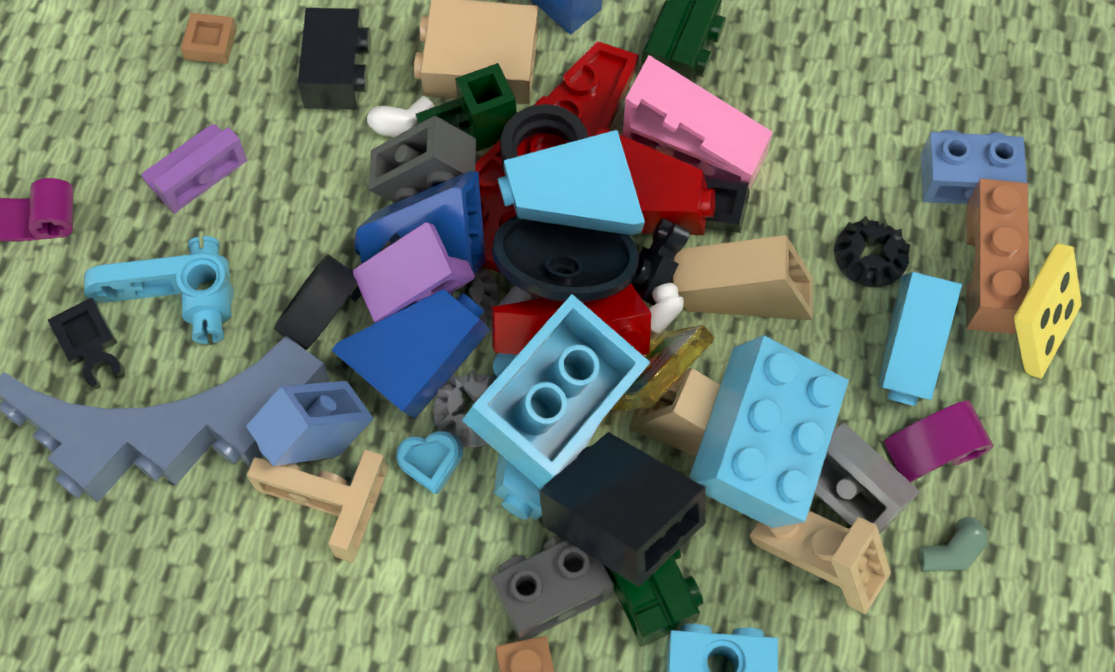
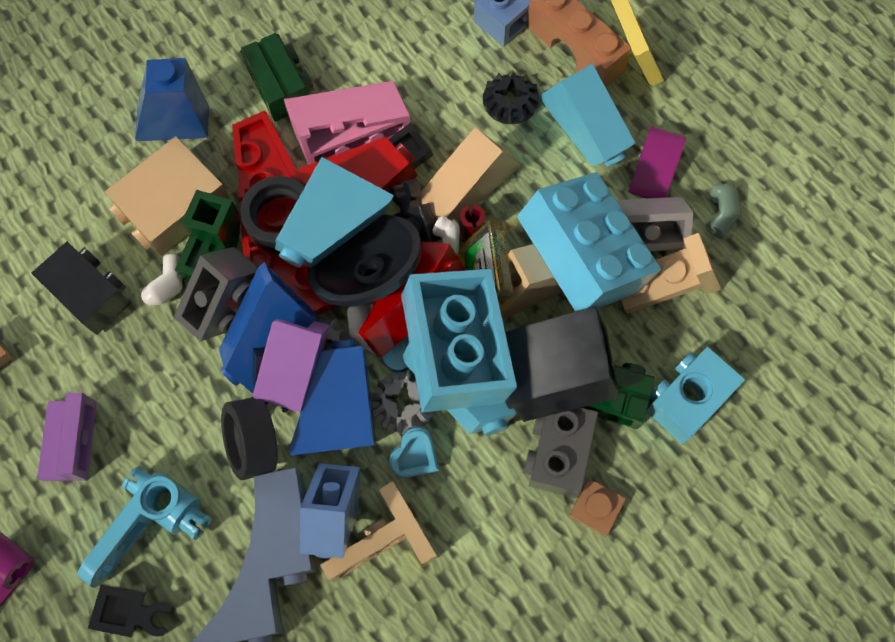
camera: 45 degrees left, 5 degrees up
(698, 314) = (469, 220): none -> dark red pin

